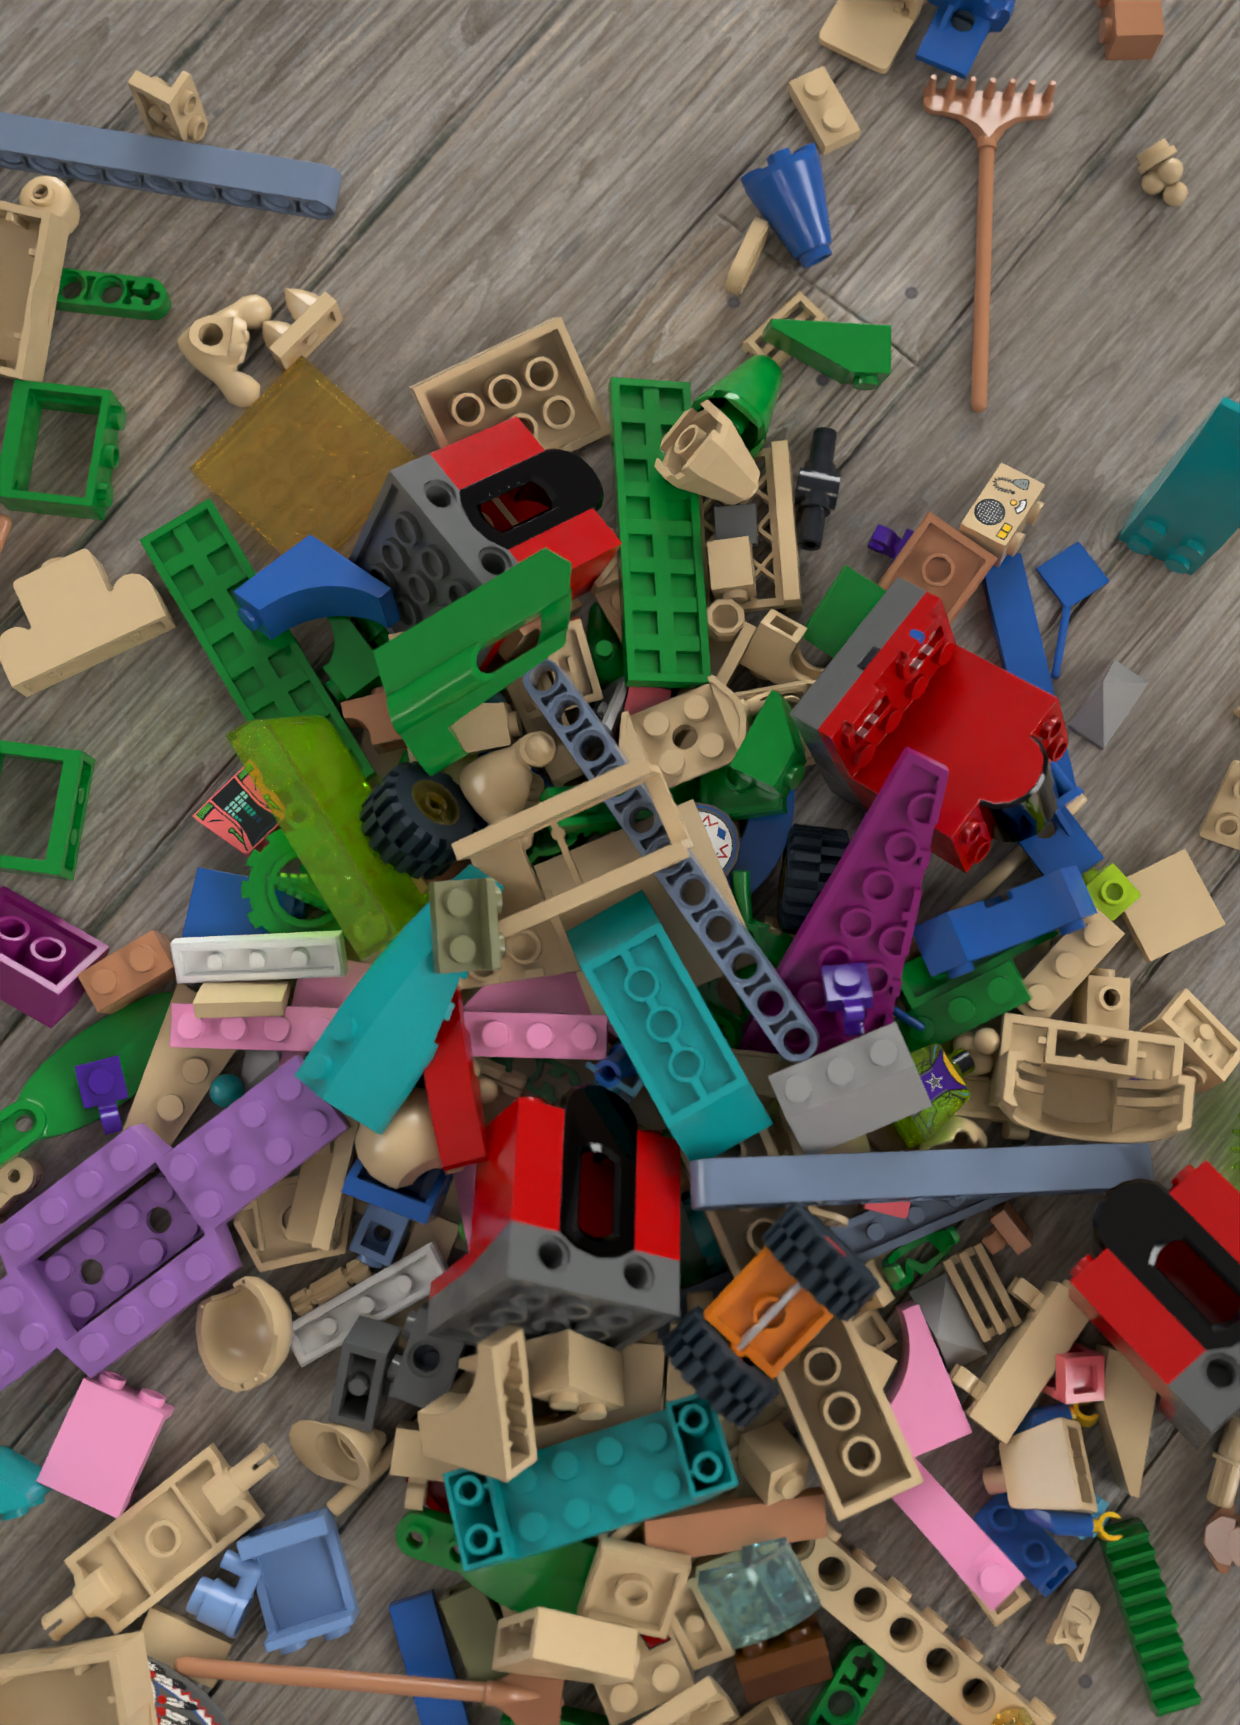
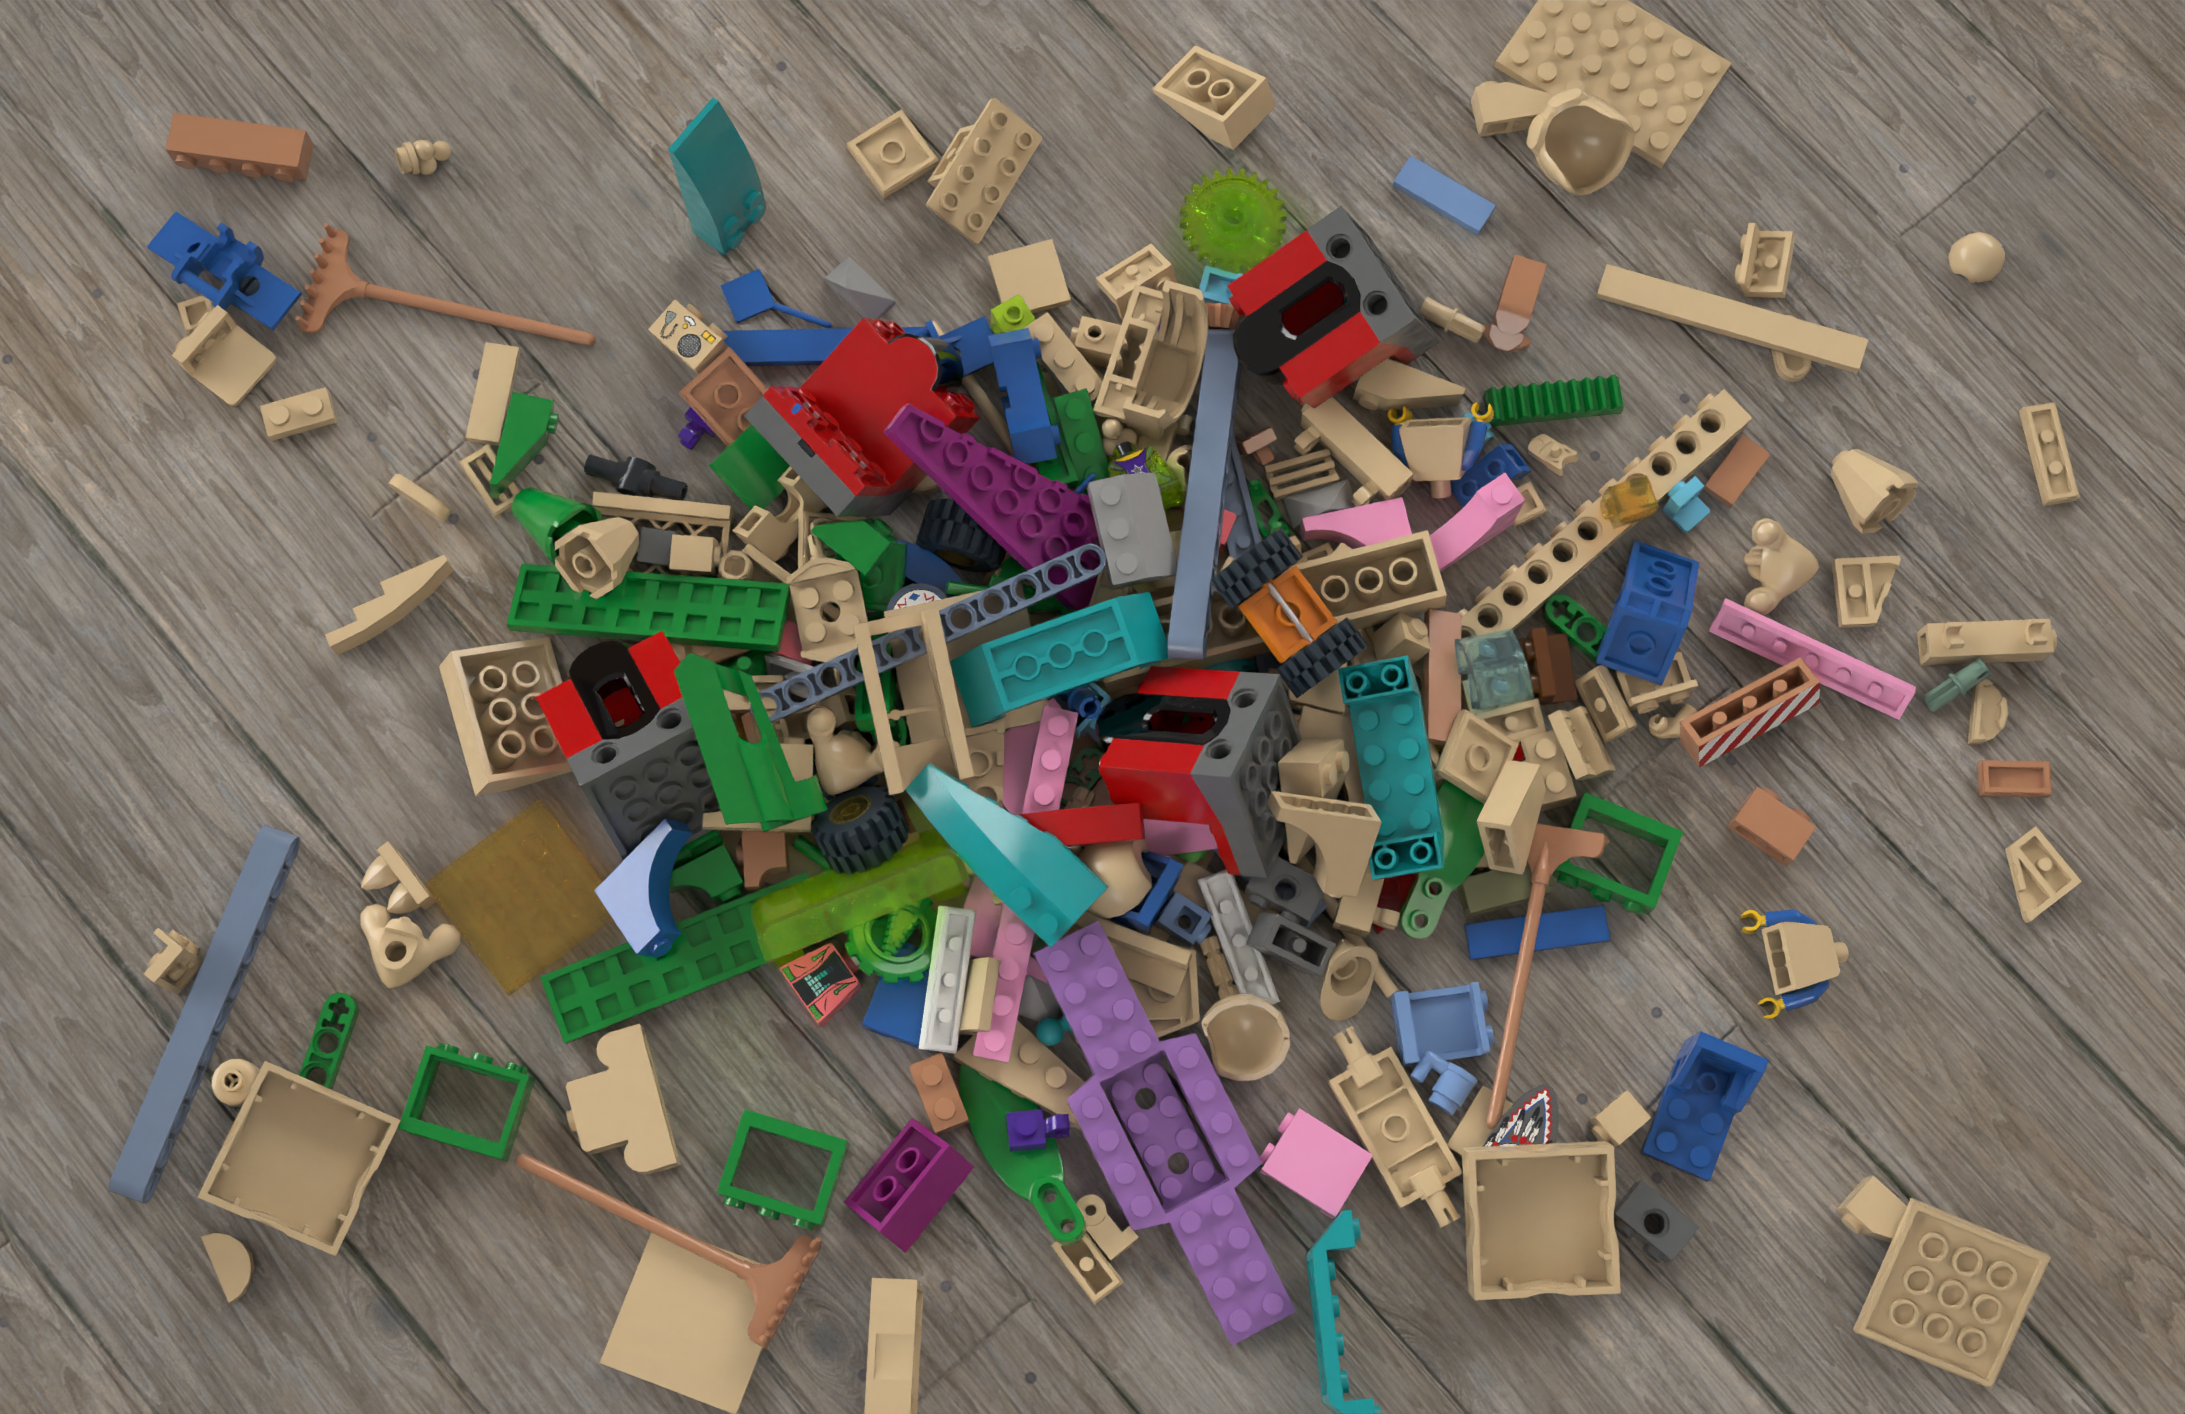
camera: 85 degrees left, 5 degrees down
(466, 925) = (958, 788): olive bracket -> none
(623, 258) = (401, 596): none -> tan slope
(794, 202) = (382, 450): blue cone -> none
(848, 991) = (1058, 515): dark purple plate -> none
(902, 309) = (493, 393): none -> tan tile
(1078, 1376) = (1372, 412): coral panel -> none
(1168, 1157) = (1222, 316): none -> nougat piece
(1211, 1143) = (1215, 283): none -> medium azure tile

